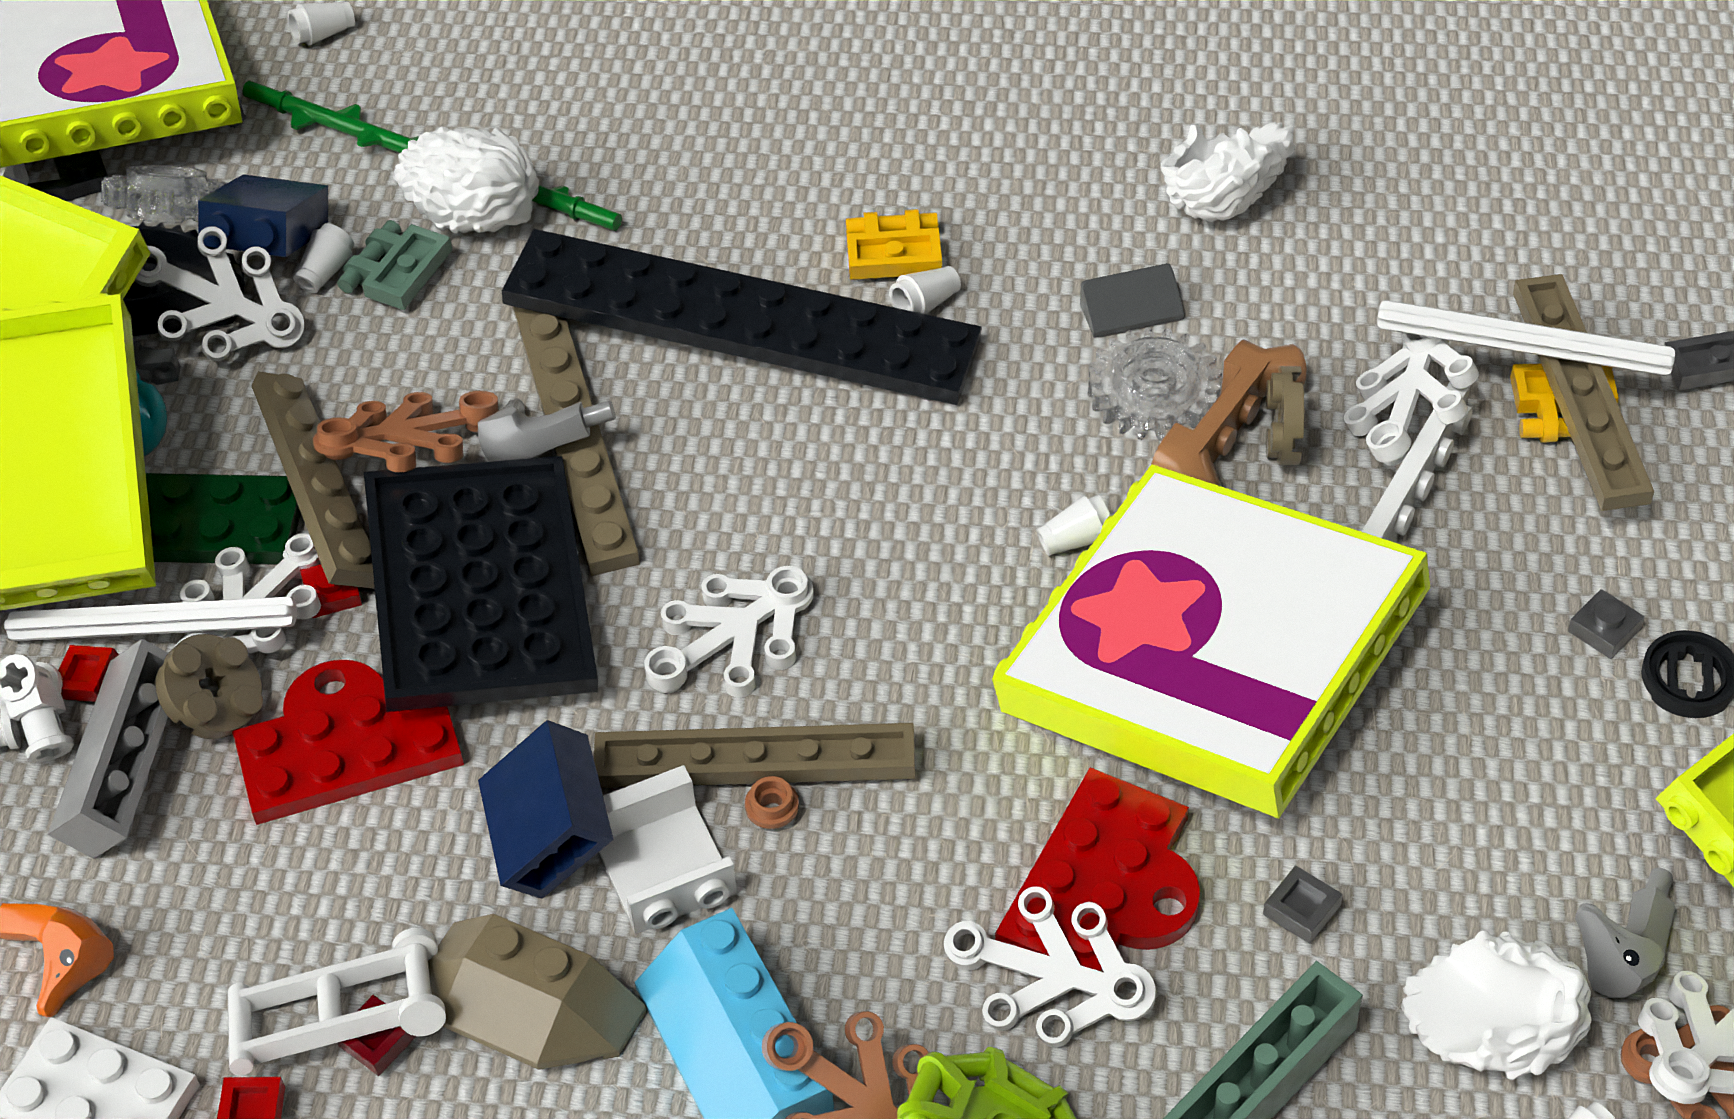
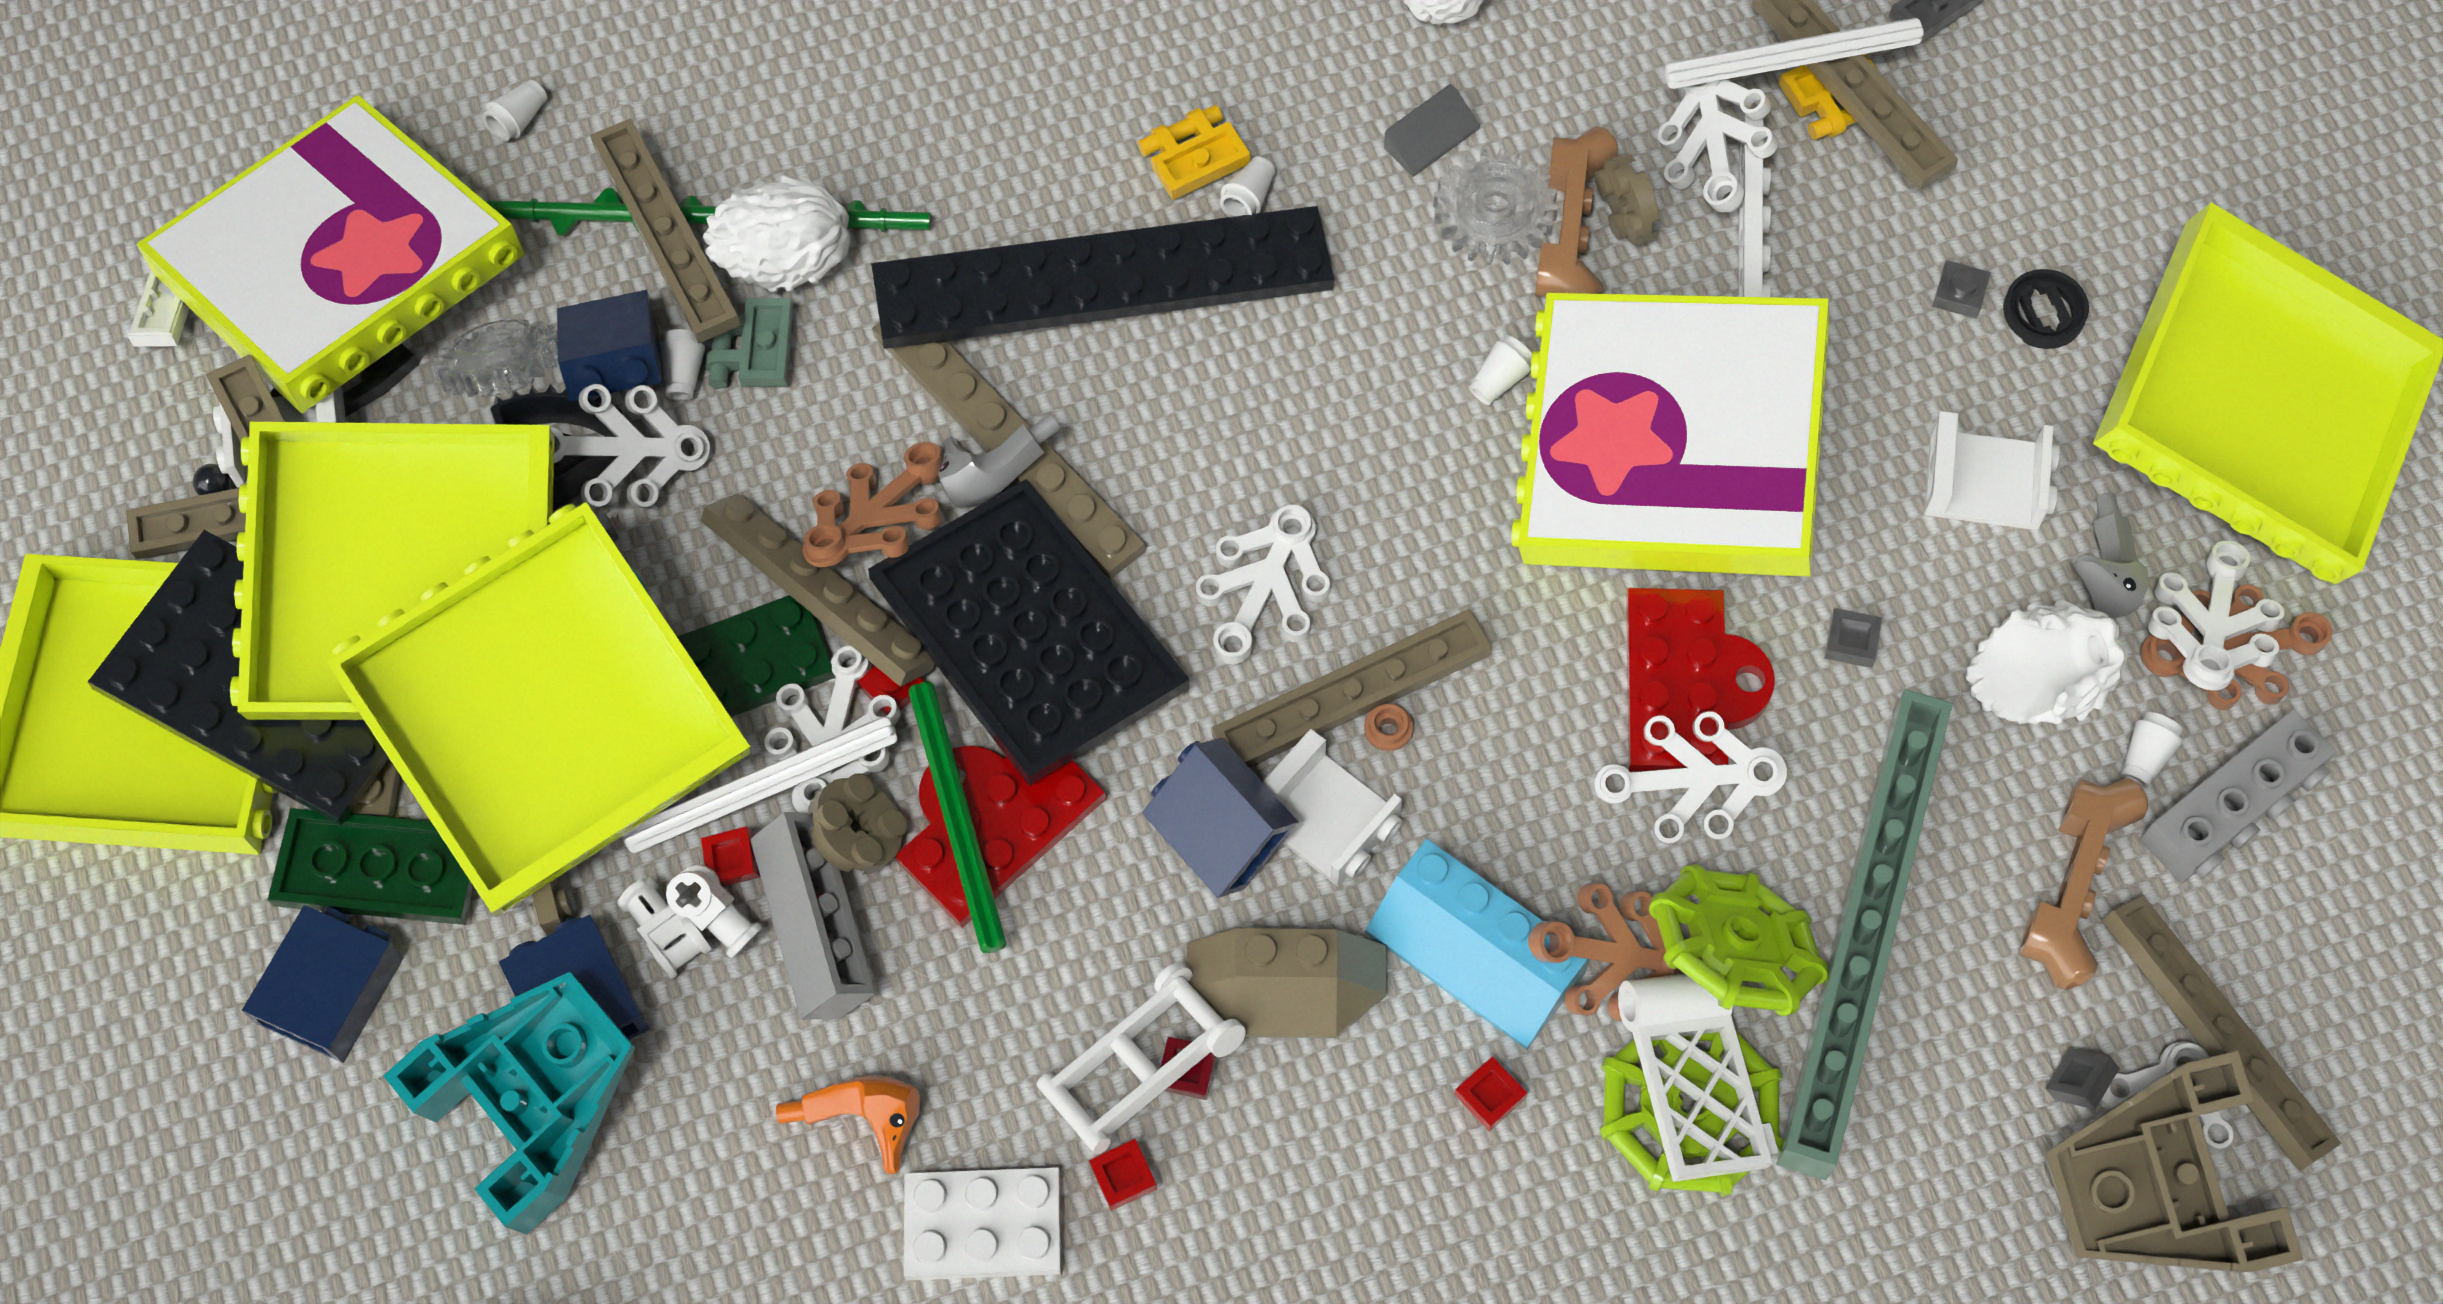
camera: 25 degrees left, 15 degrees up
(302, 717) = (957, 818): none -> green axle
(373, 147) = (665, 231): none -> dark tan plate
(1537, 807) = (1990, 476): none -> white panel

